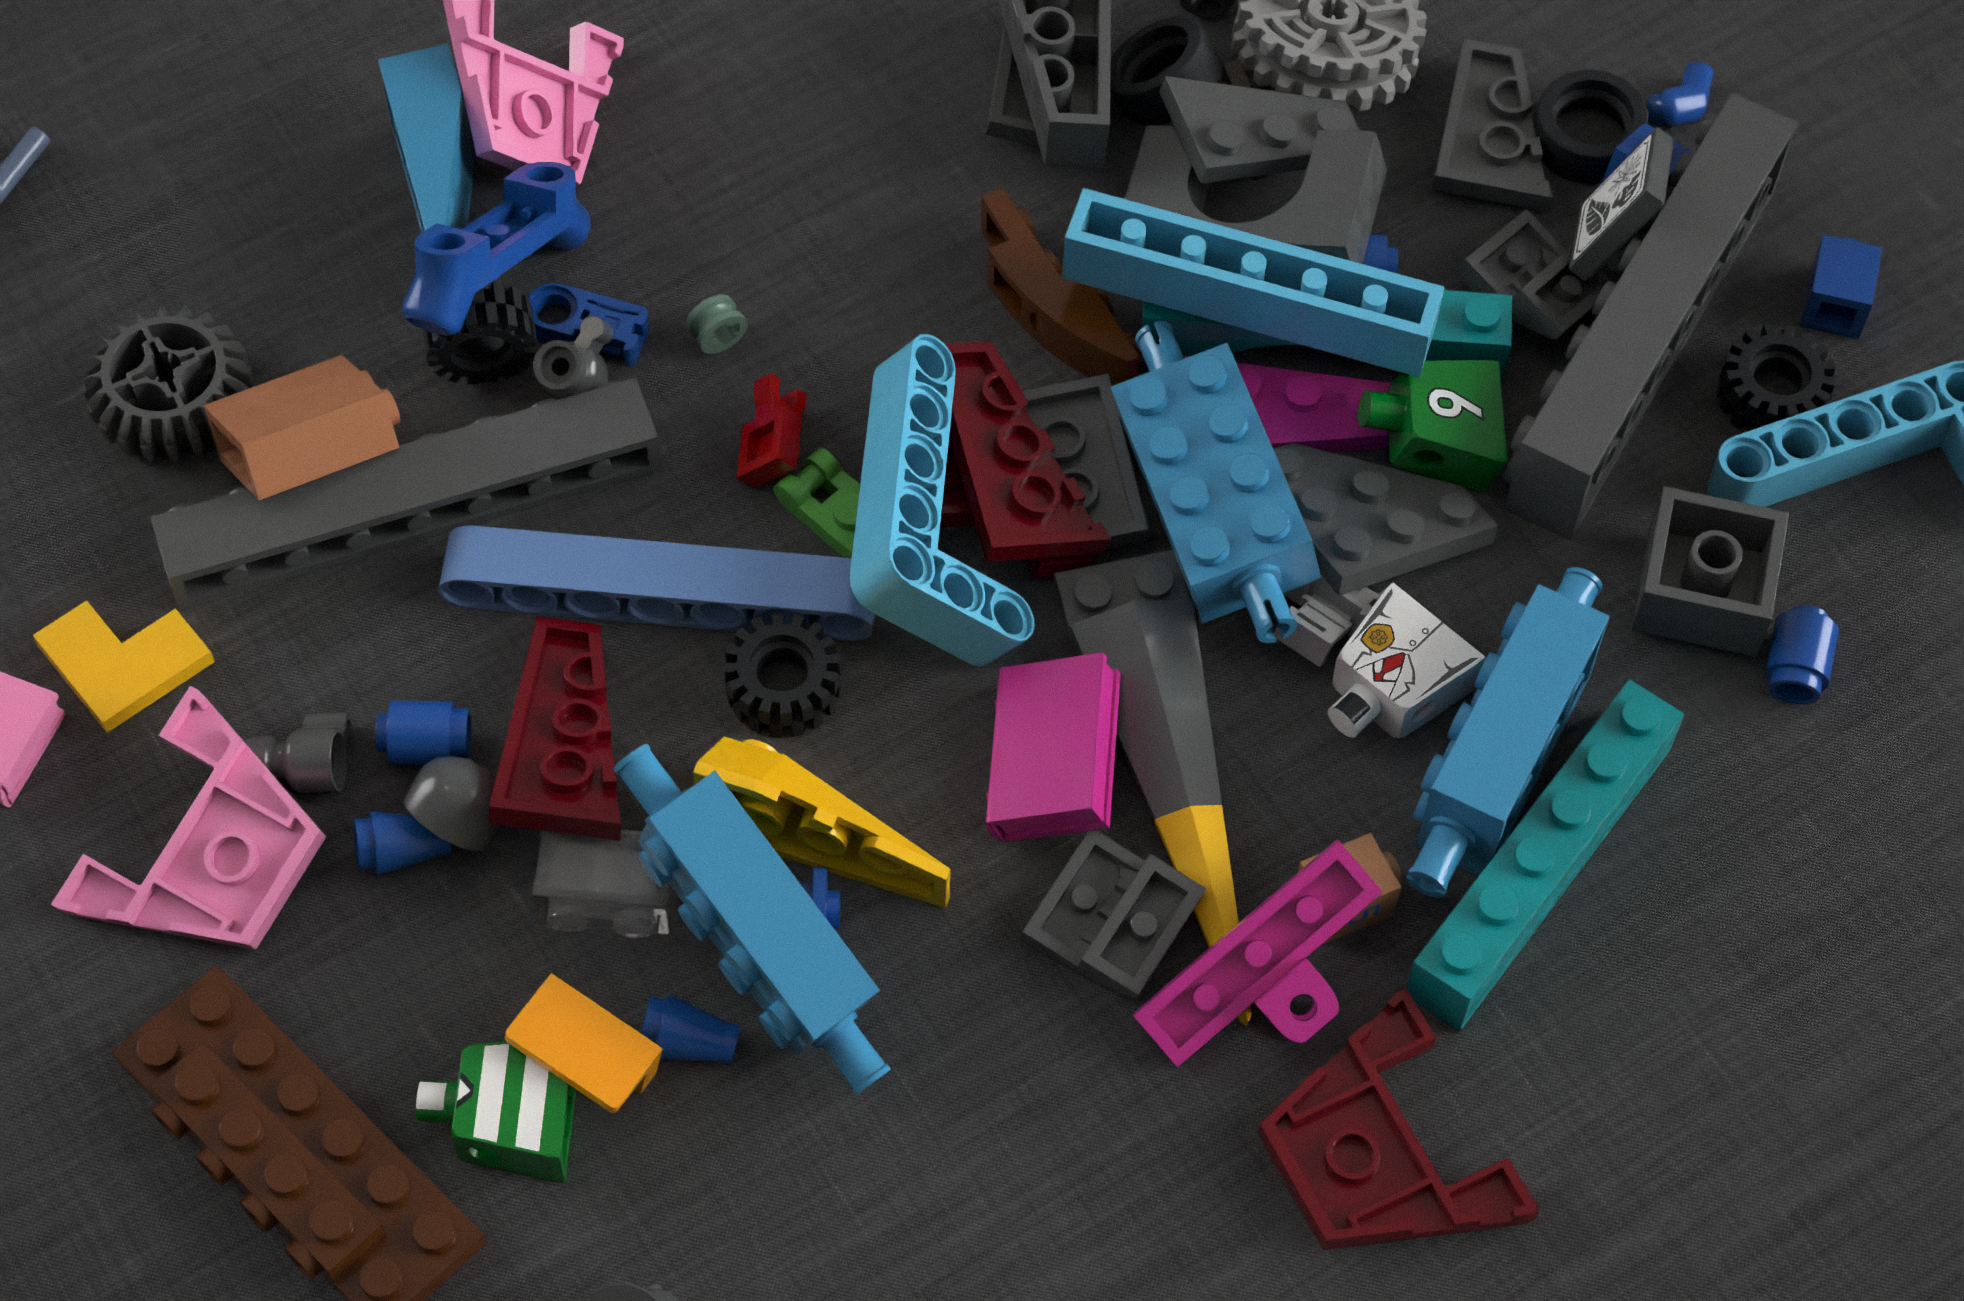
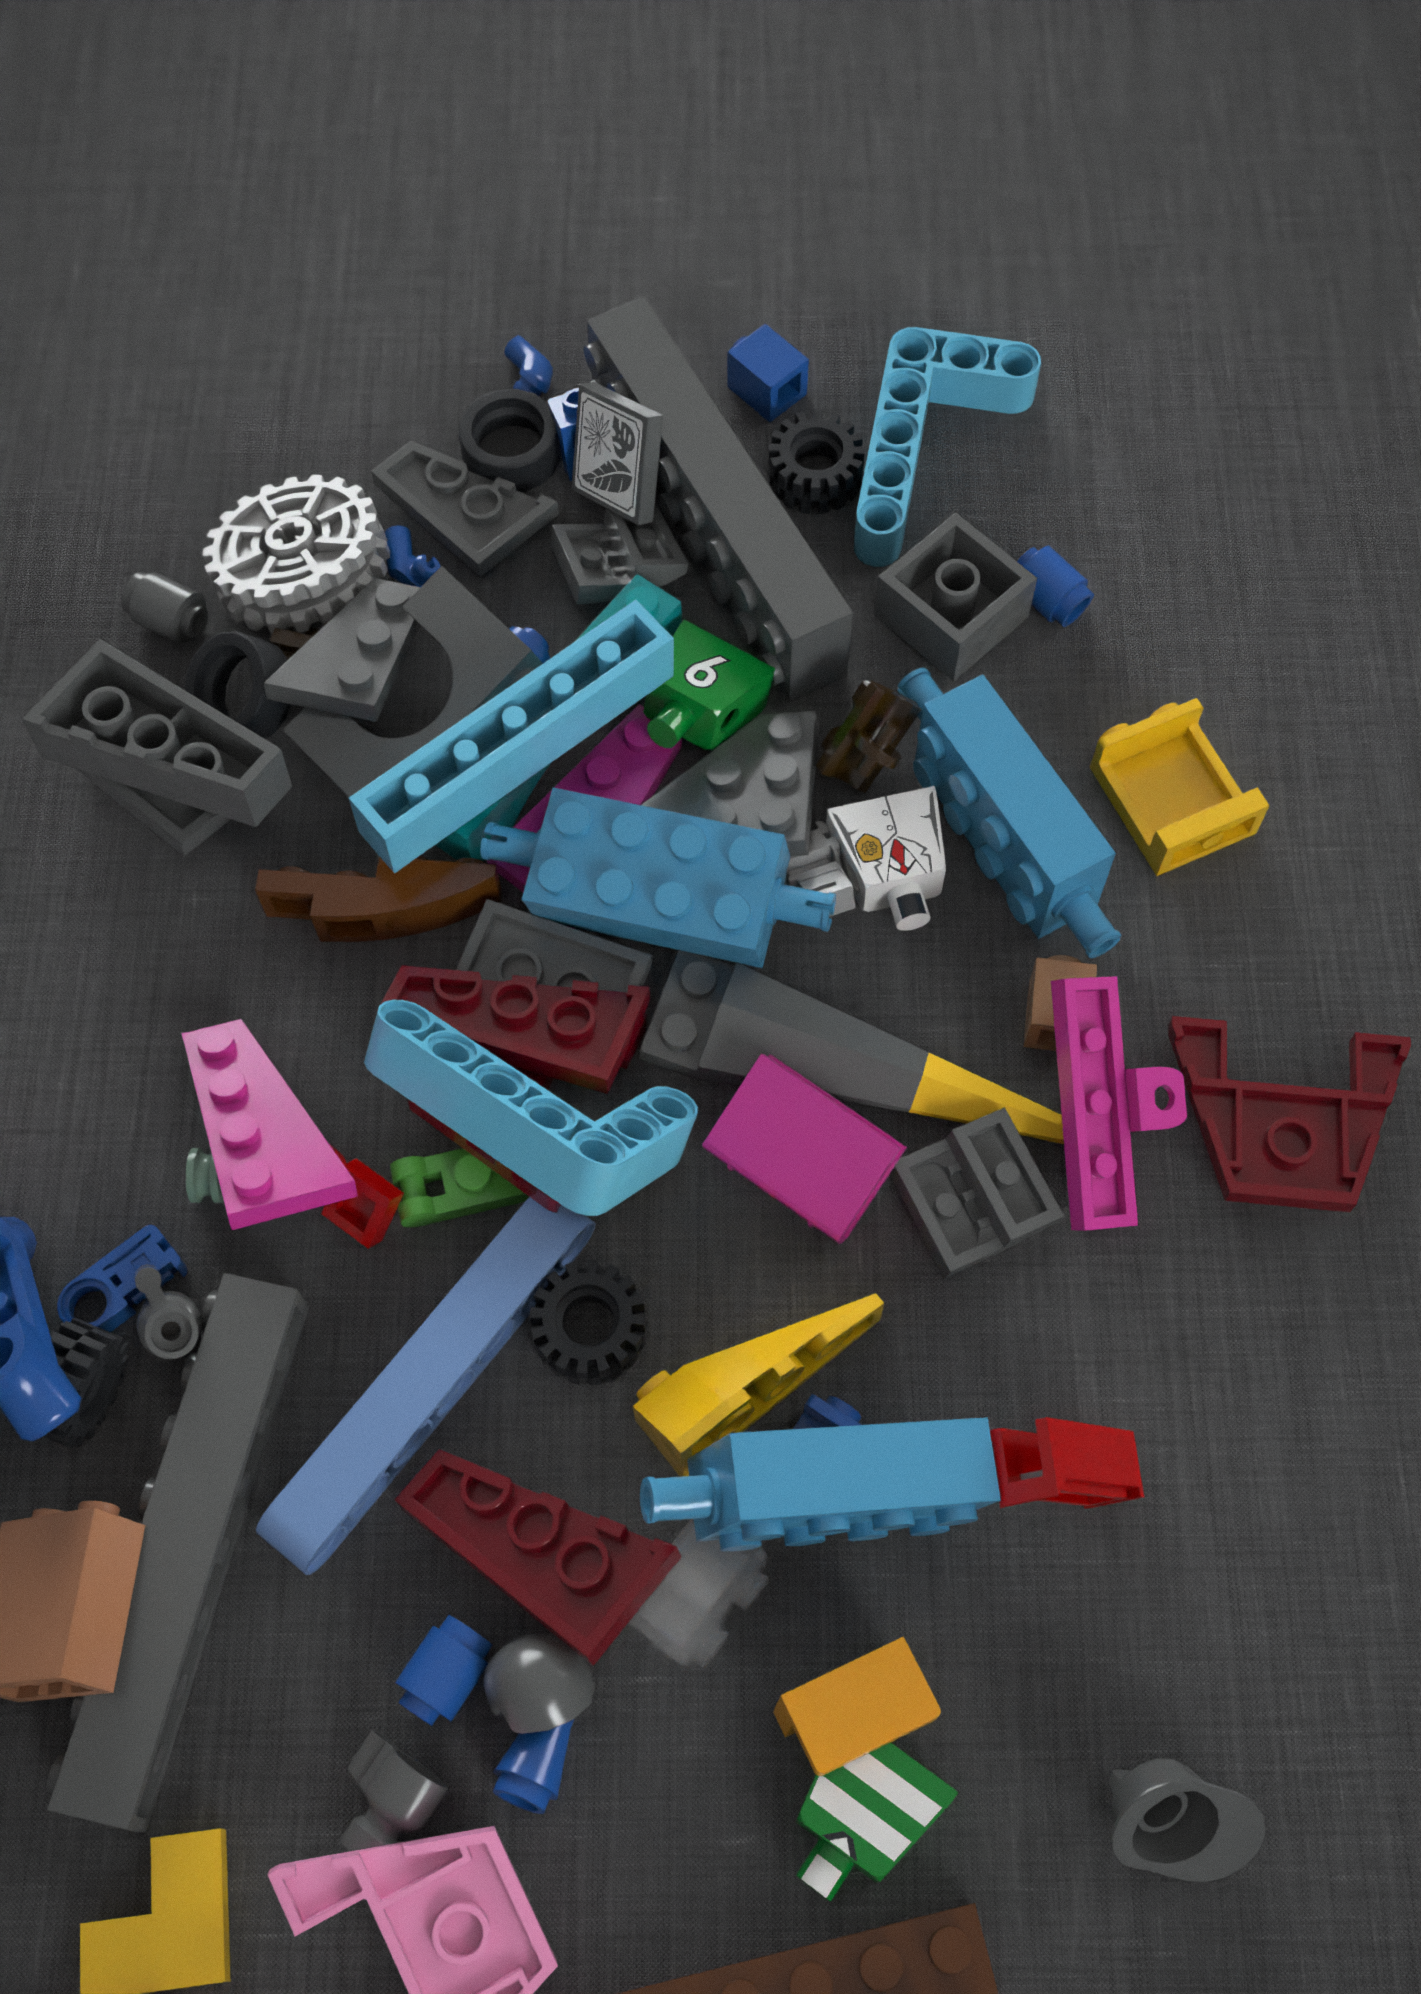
camera: 55 degrees left, 5 degrees up
(688, 1031) = (880, 1606): blue cone -> none
(773, 327) = (258, 1132): none -> dark pink wing
(894, 1095) = (1066, 1464): none -> red window
(1395, 124) = (402, 563): none -> blue arm
(1496, 574) = (868, 736): none -> dark brown hips
(1543, 855) = (1141, 894): teal brick -> none
(1662, 875) = (1174, 788): none -> yellow panel

